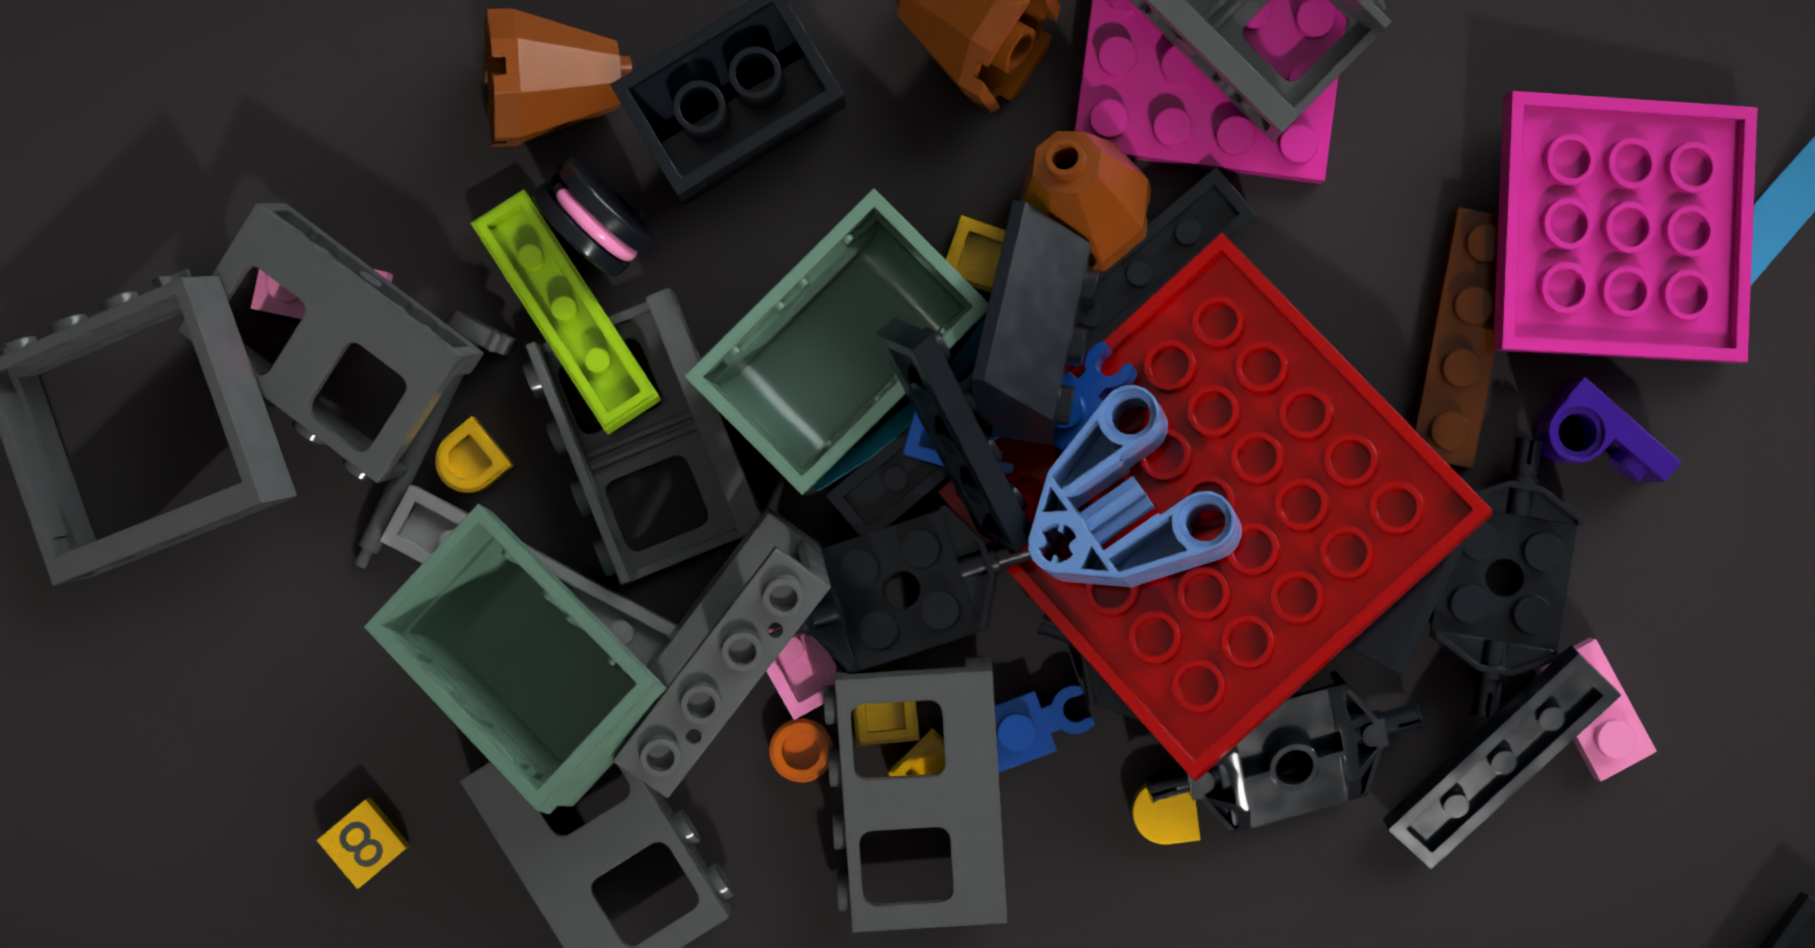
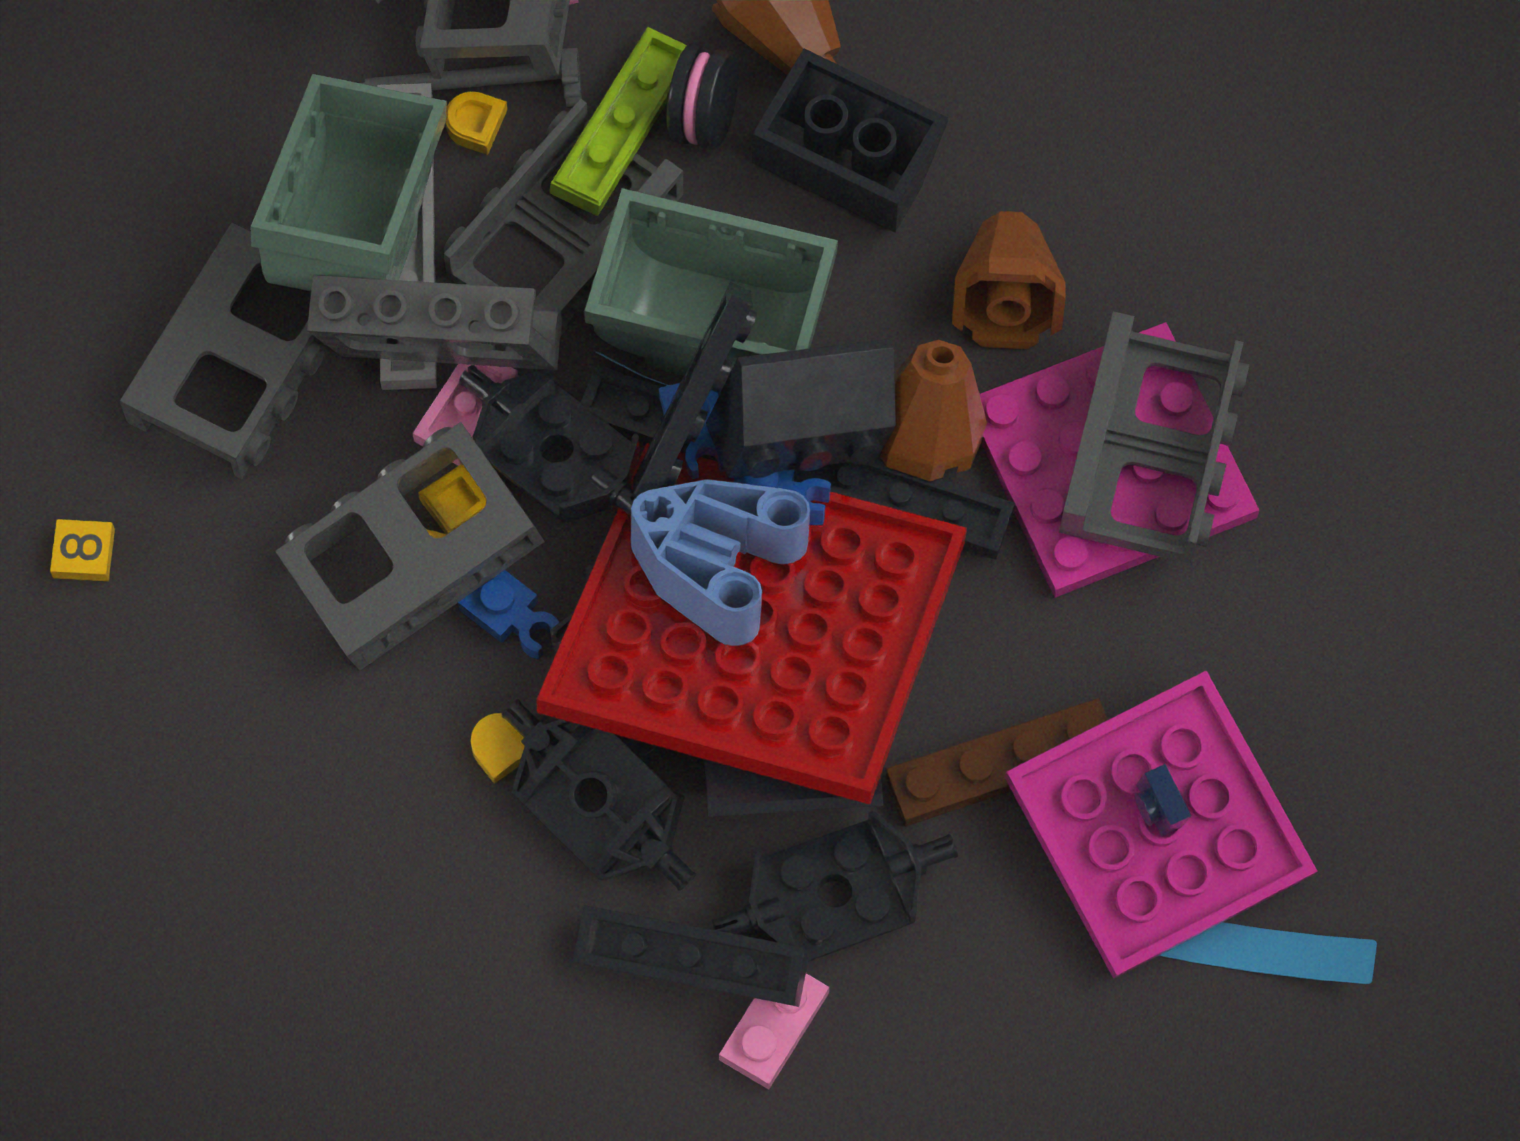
camera: 55 degrees right, 20 degrees down
(363, 842) = (144, 196): yellow tile -> none
(800, 749) = (387, 448): orange tile -> none
(1604, 426) = (994, 897): dark purple plate -> none
(1628, 220) = (1161, 801): none -> dark blue plate

